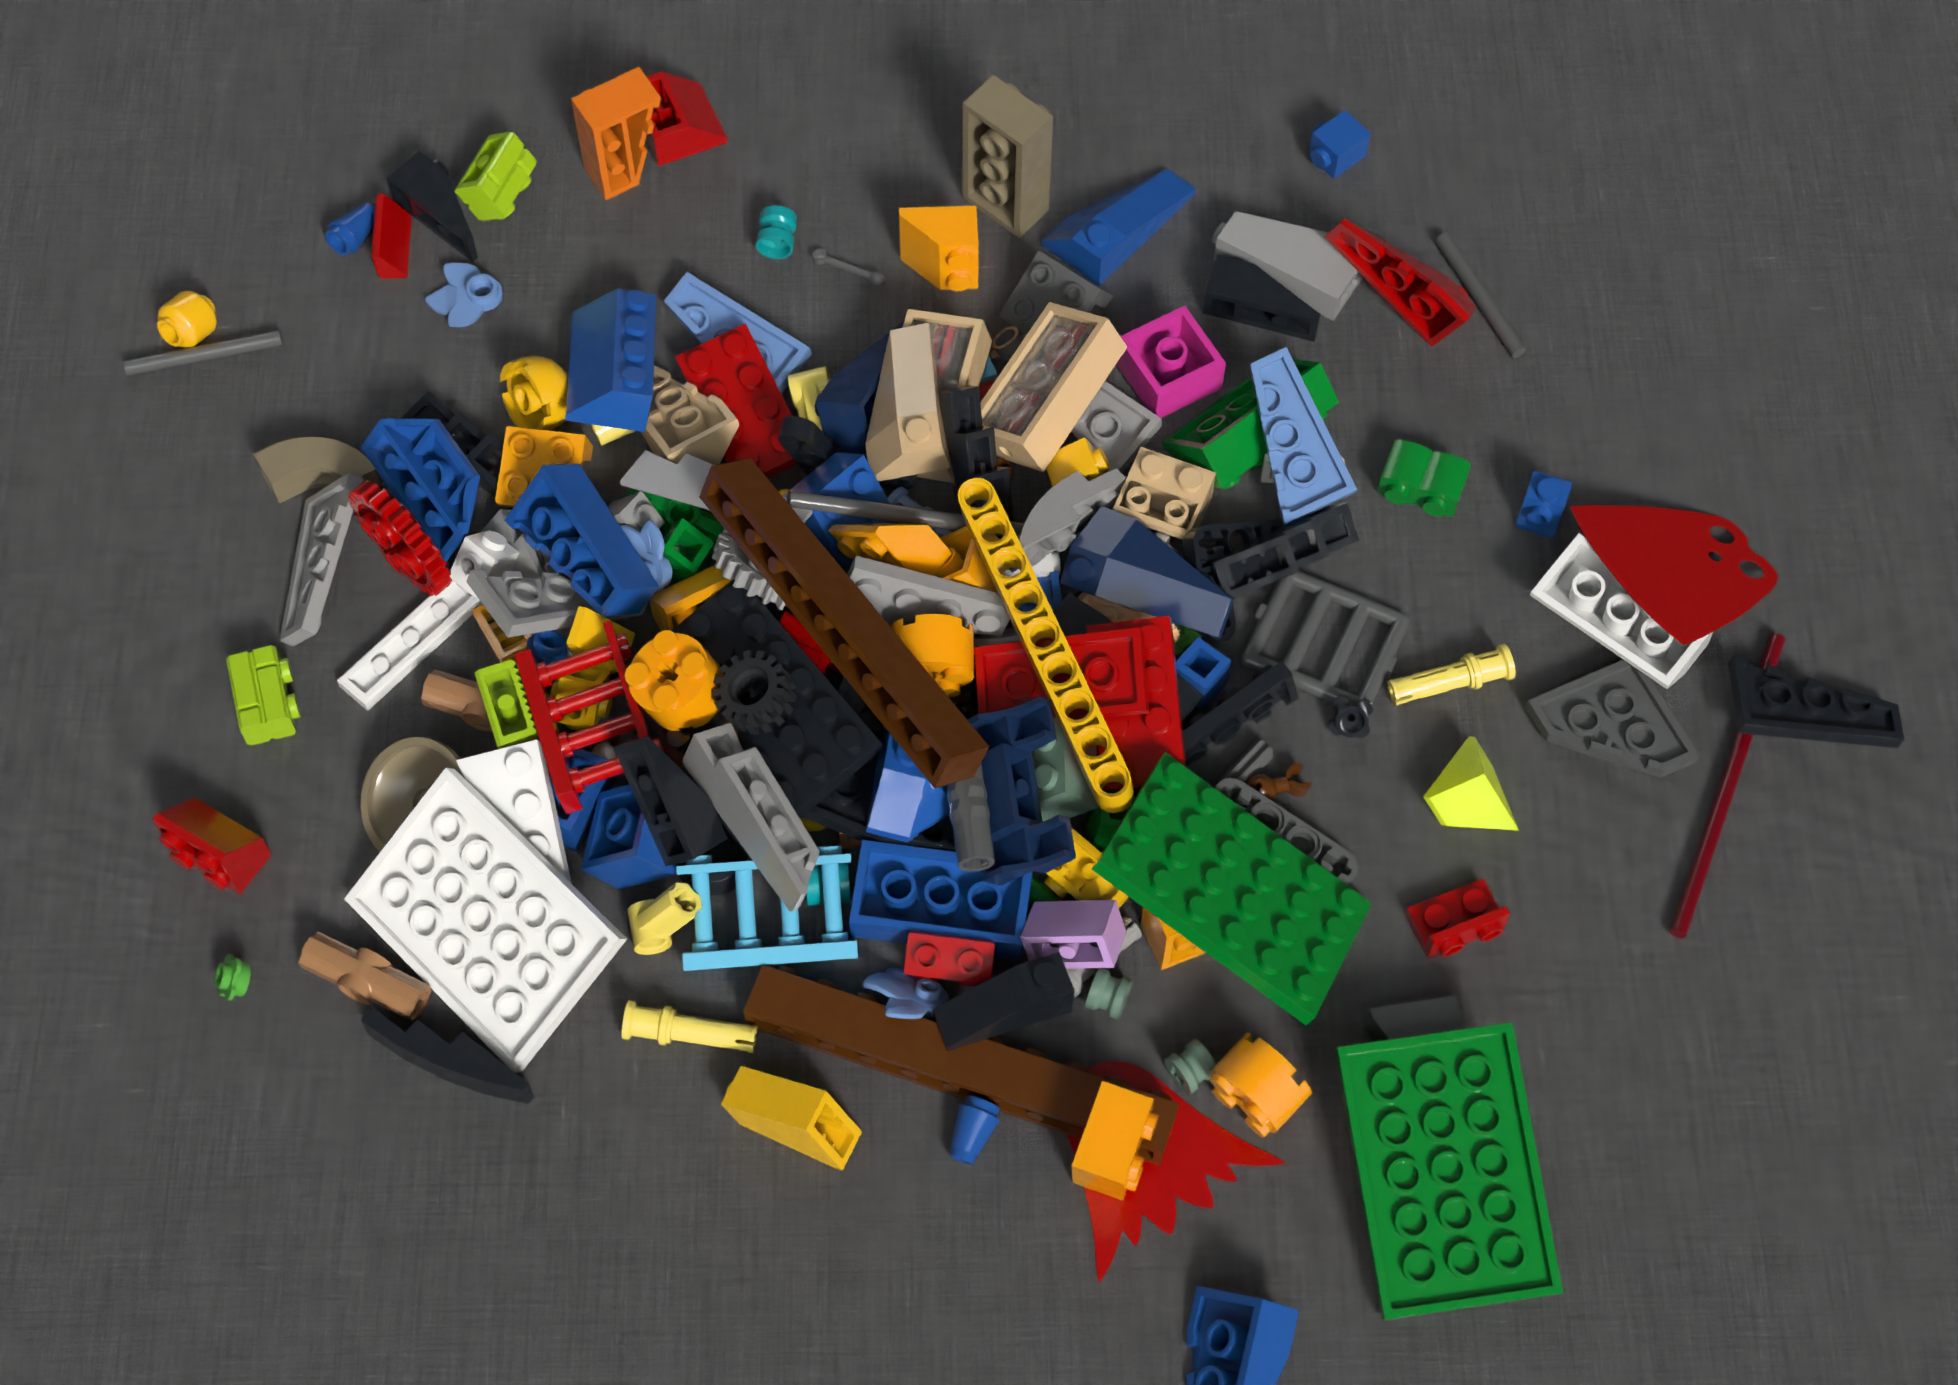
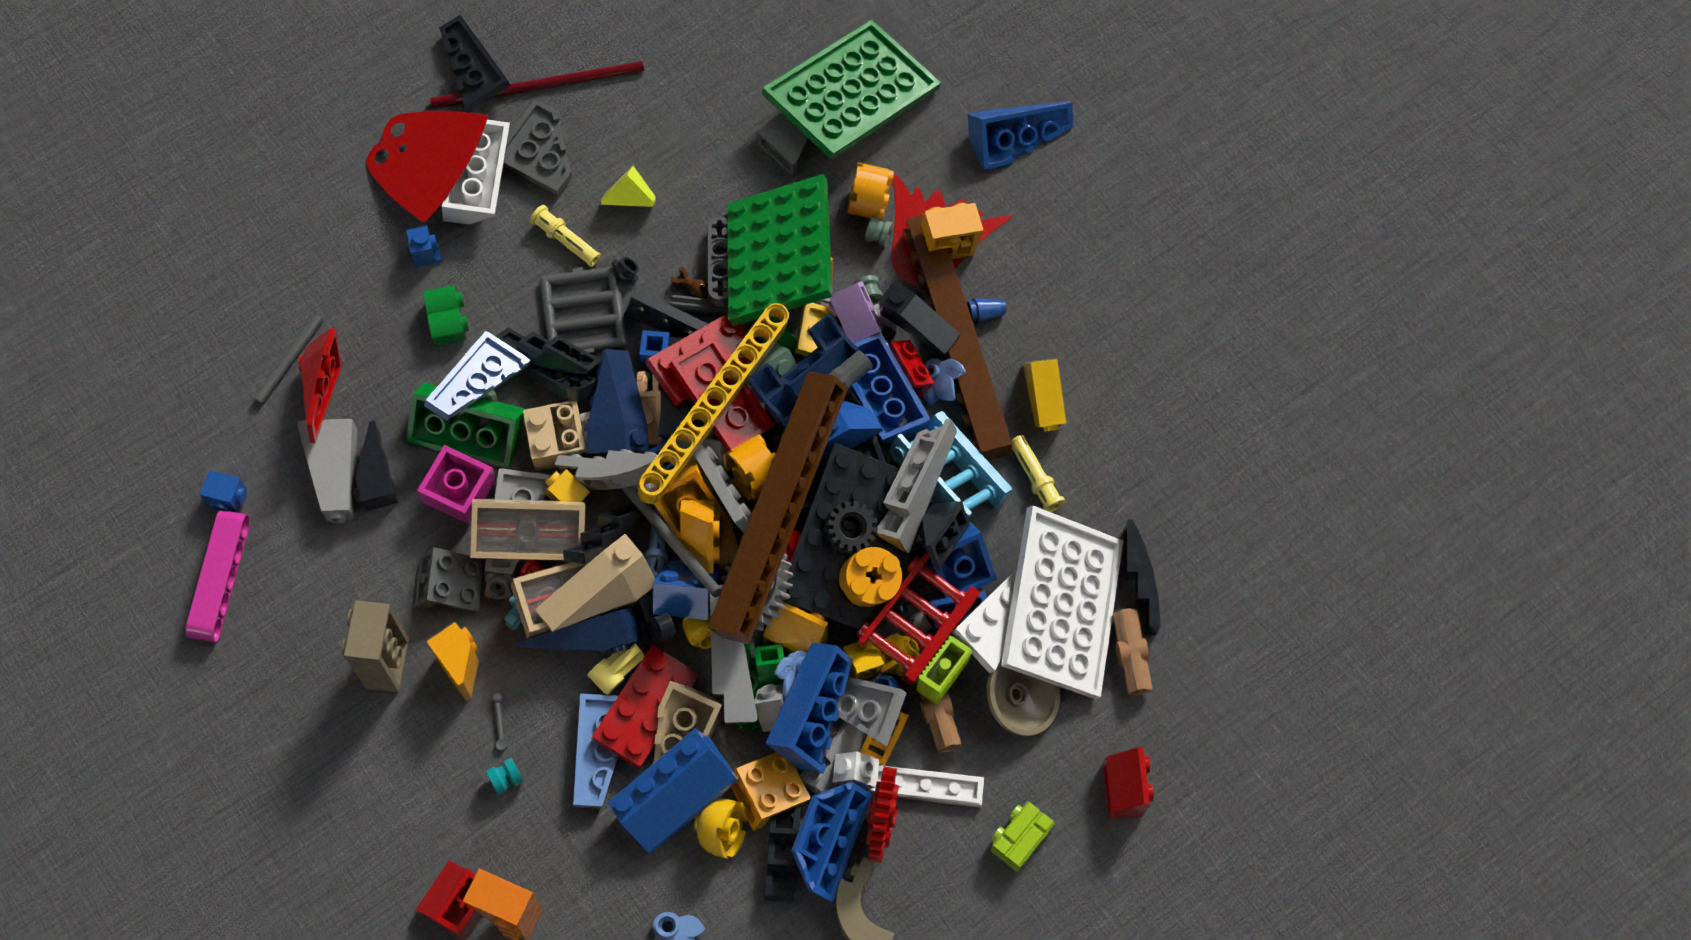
camera: 125 degrees left, 5 degrees up
(232, 977) = (1185, 718): bright green plate -> none
(316, 557) = (916, 873): light grey wing -> none
(658, 918) = (994, 524): light yellow piece -> none
(1111, 230) = (363, 580): blue wedge -> none
(1234, 93) = (217, 576): none -> dark pink beam
(1456, 919) = (708, 161): red bracket -> none

